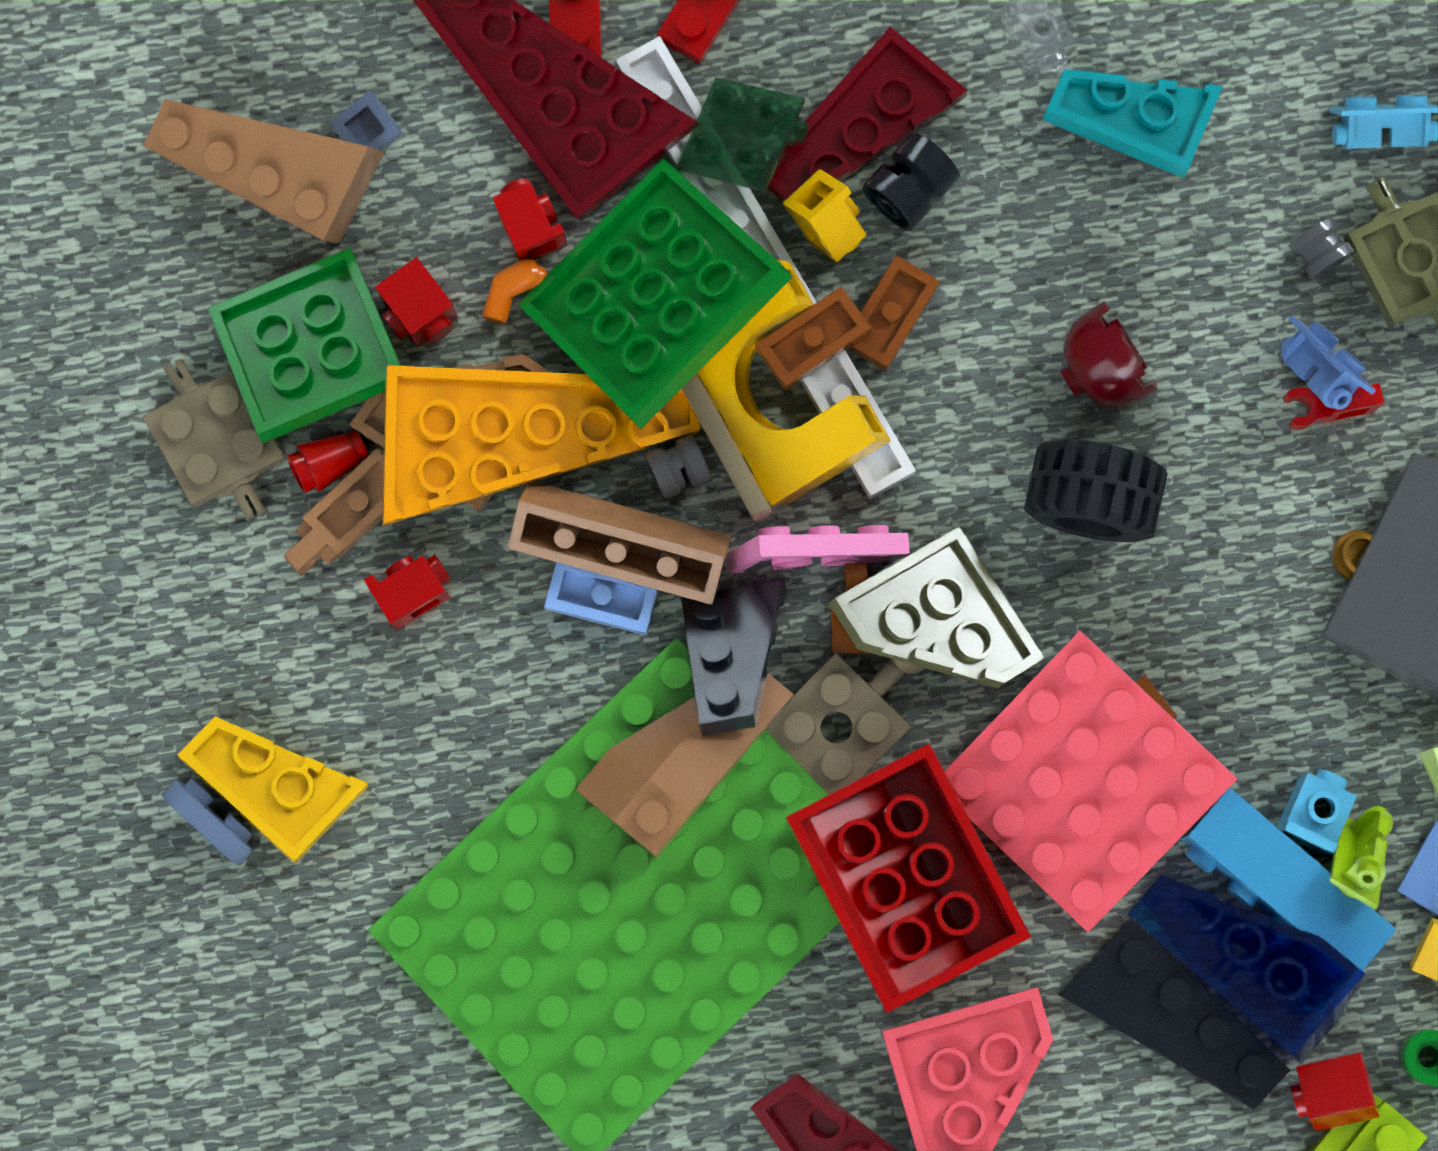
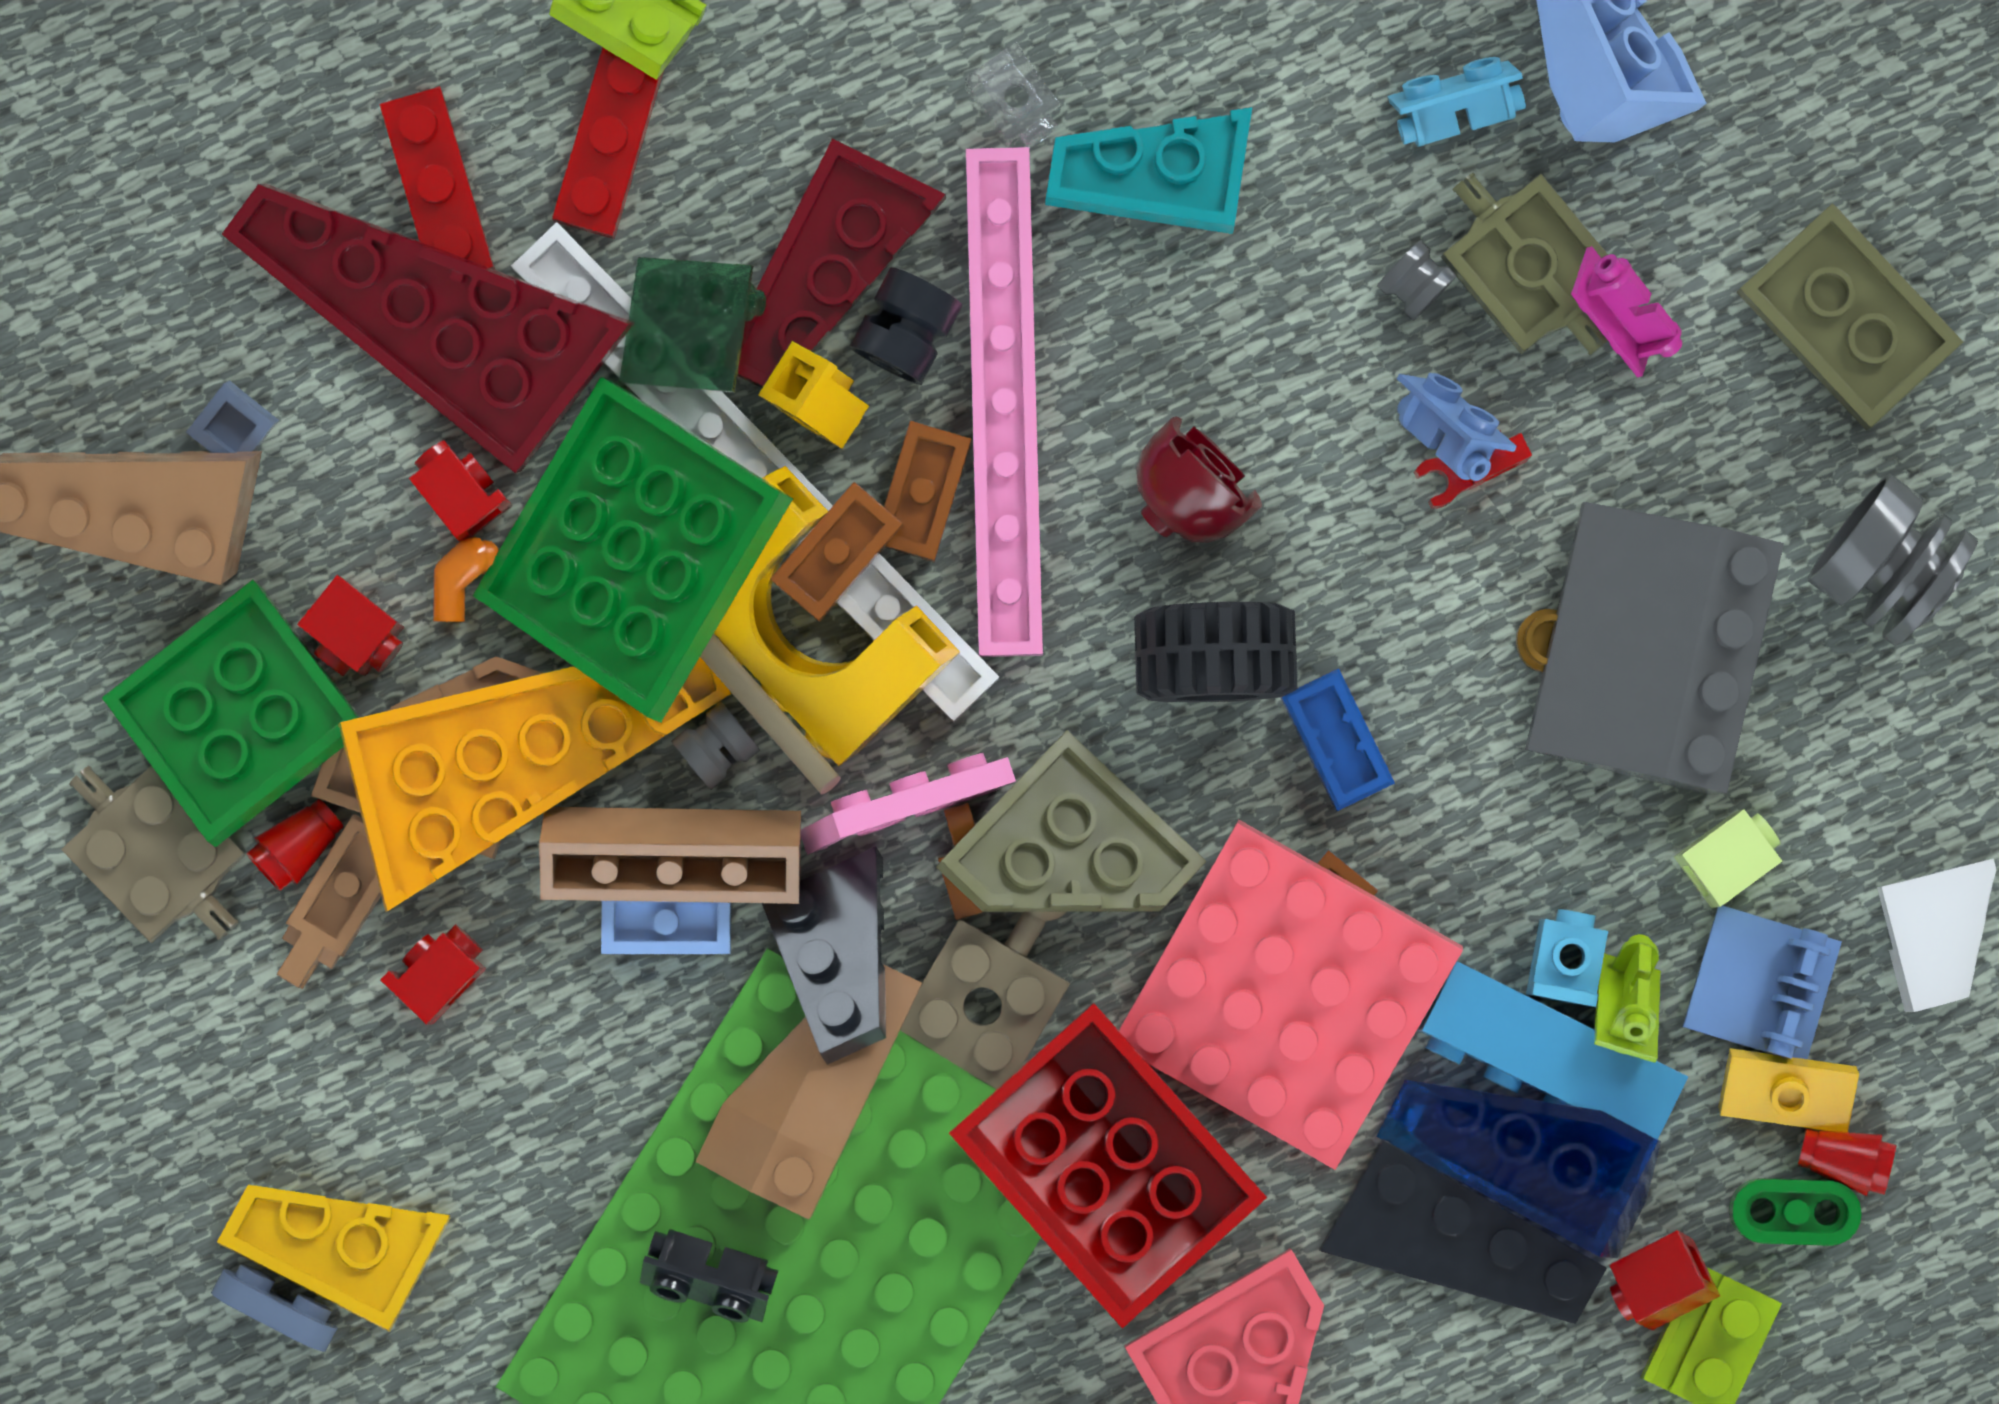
camera: 15 degrees left, 5 degrees up
(539, 874) = (683, 1274): none -> black hinge
(972, 263) = (1004, 402): none -> bright pink plate
(1172, 590) = (1337, 740): none -> blue plate

